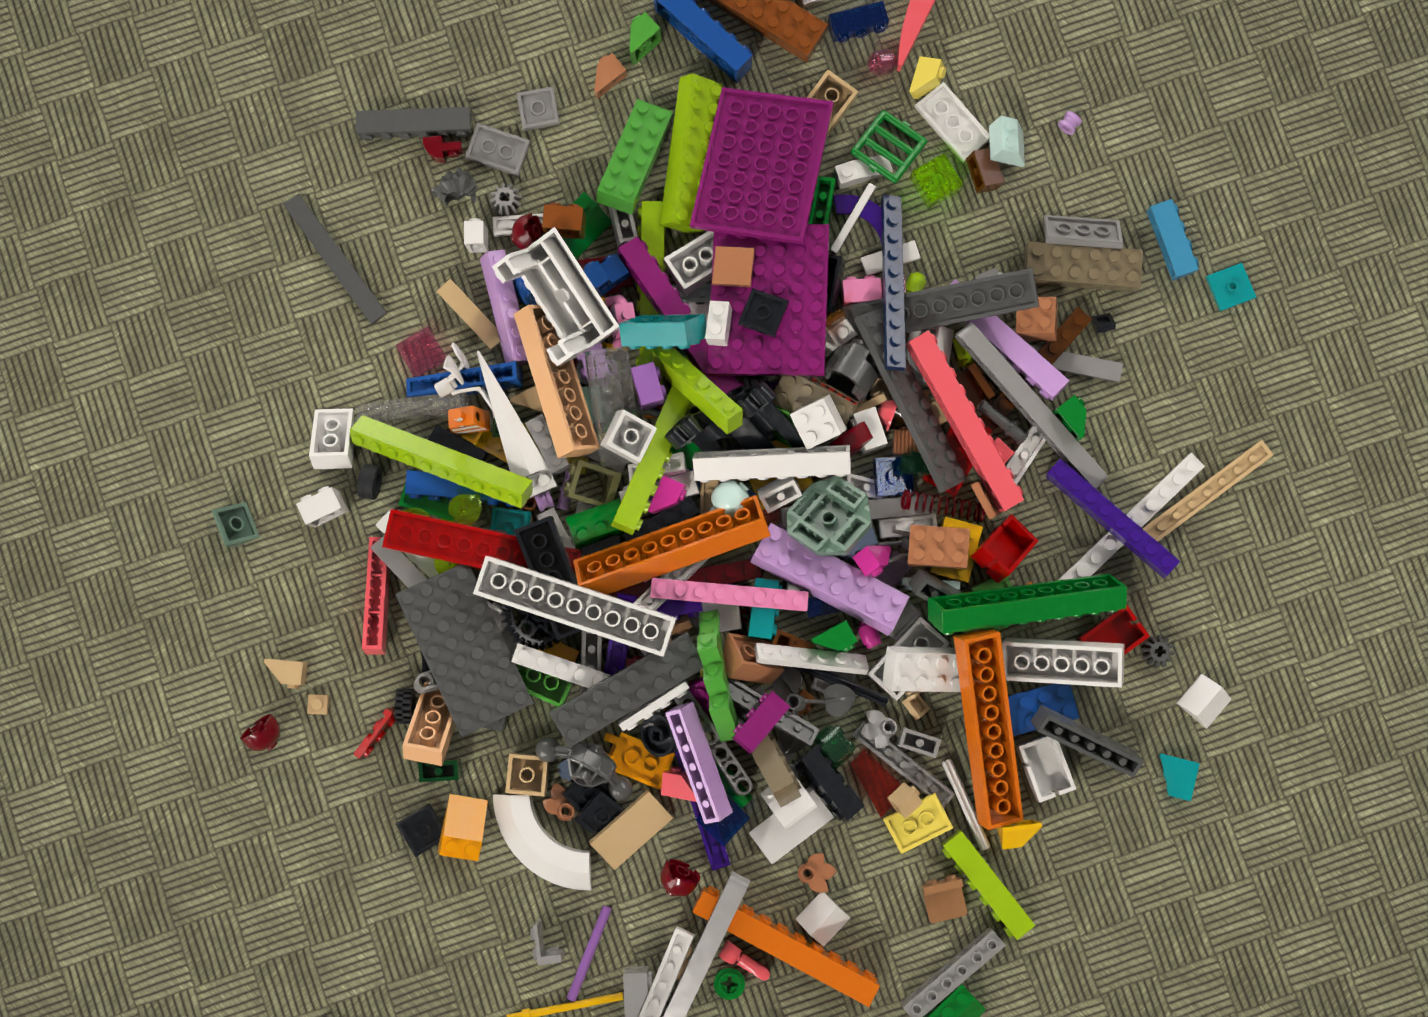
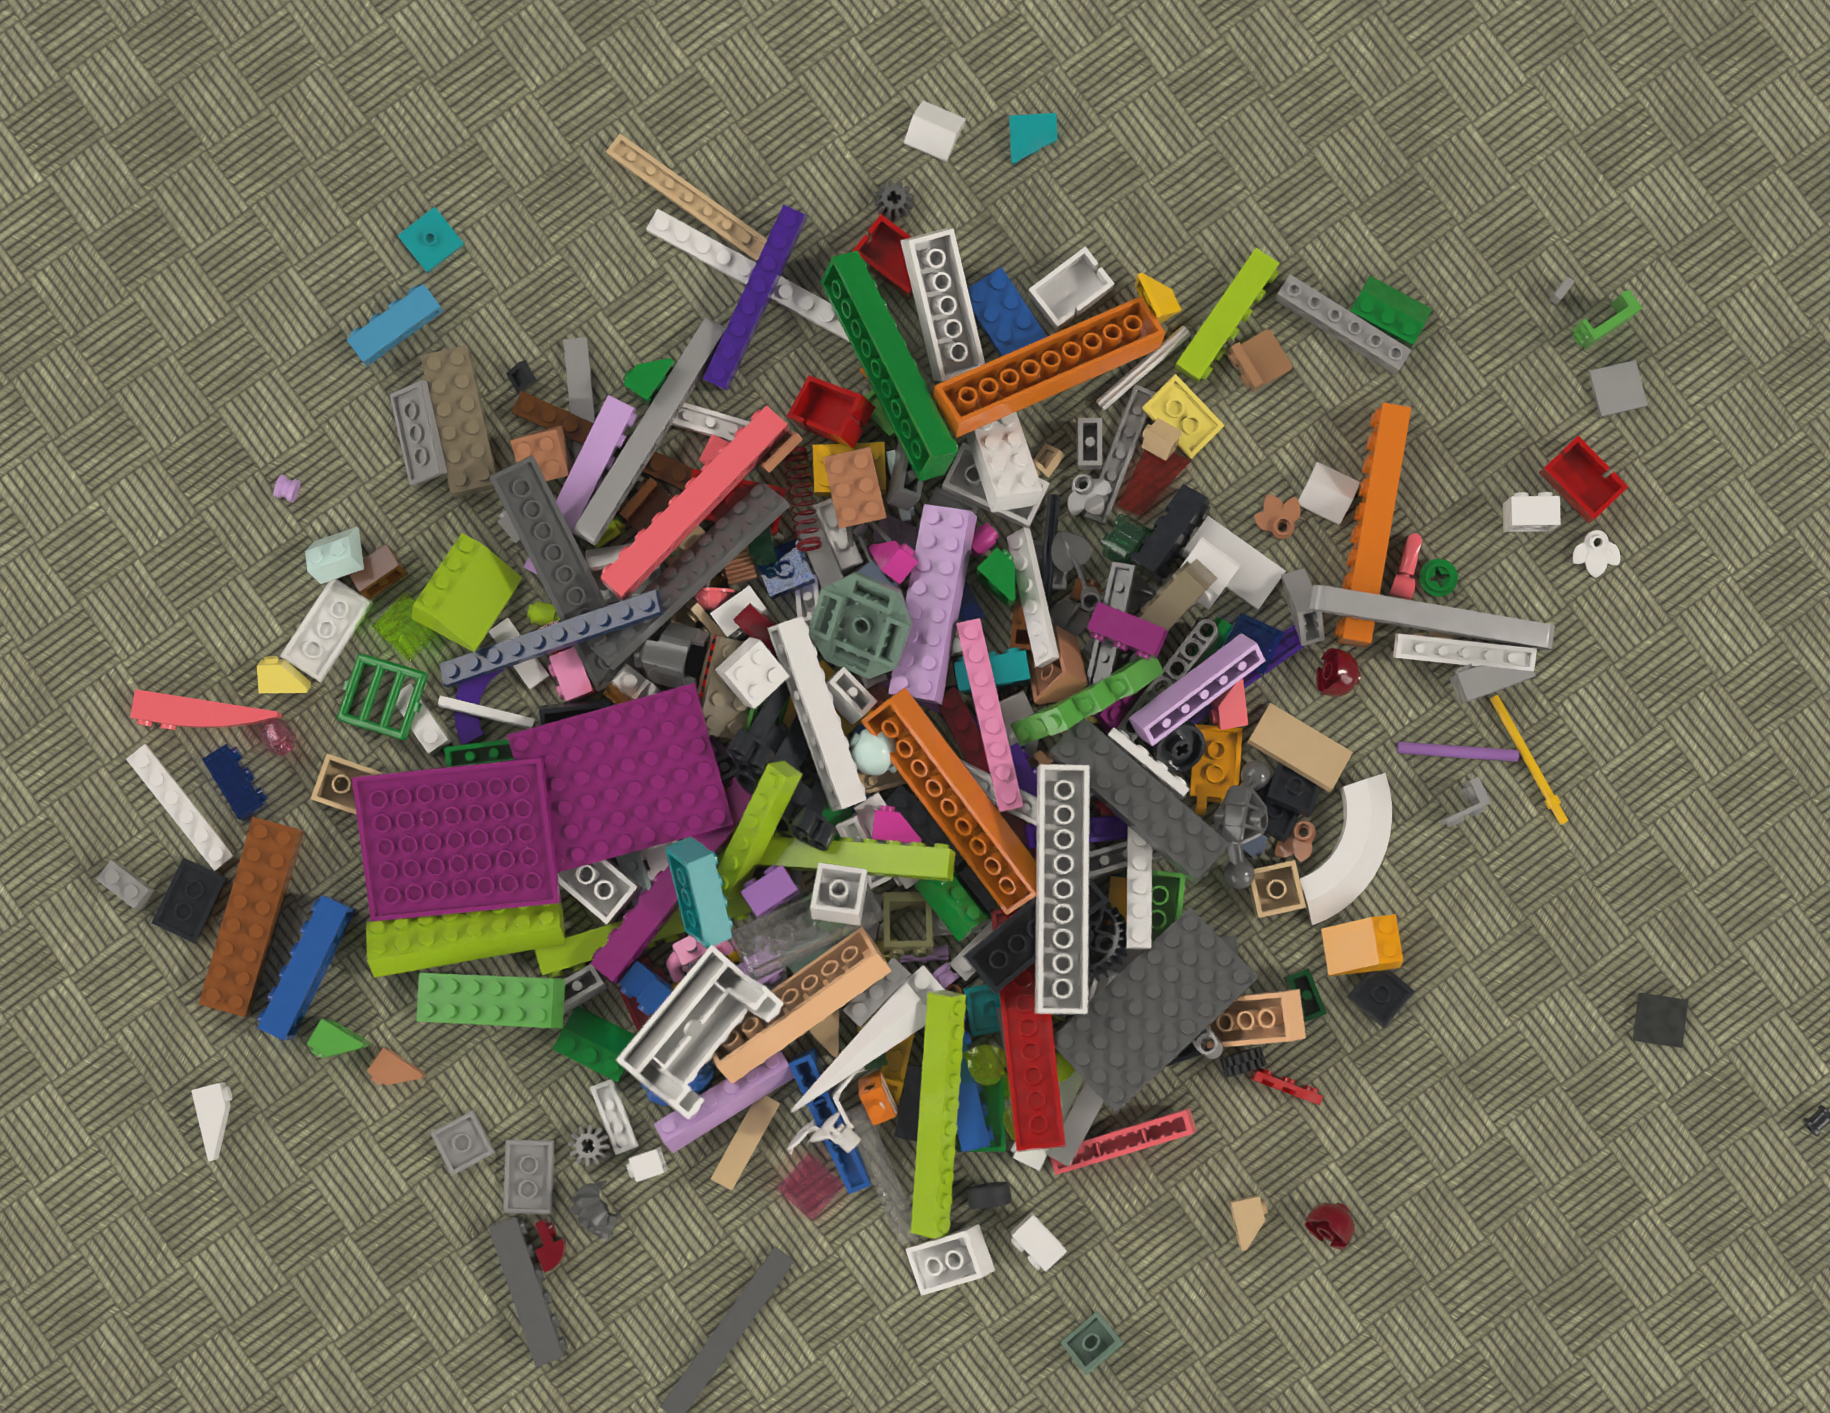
camera: 110 degrees left, 0 degrees up
(318, 704) = (1274, 1170): tan plate -> none
(526, 231) = (625, 1102): dark red cylinder -> none
(567, 220) = (599, 1057): dark orange brick -> none
(718, 323) = (670, 827): white brick -> none
(733, 266) = (594, 833): nougat tile -> none
(749, 867) = (1298, 592): none -> light grey slope
(763, 313) = (641, 778): black plate -> none
(948, 230) = (466, 593): none -> lime slope
(1008, 427) = (682, 451): dark grey pin -> none
(1087, 741) = (1026, 250): dark grey brick -> none

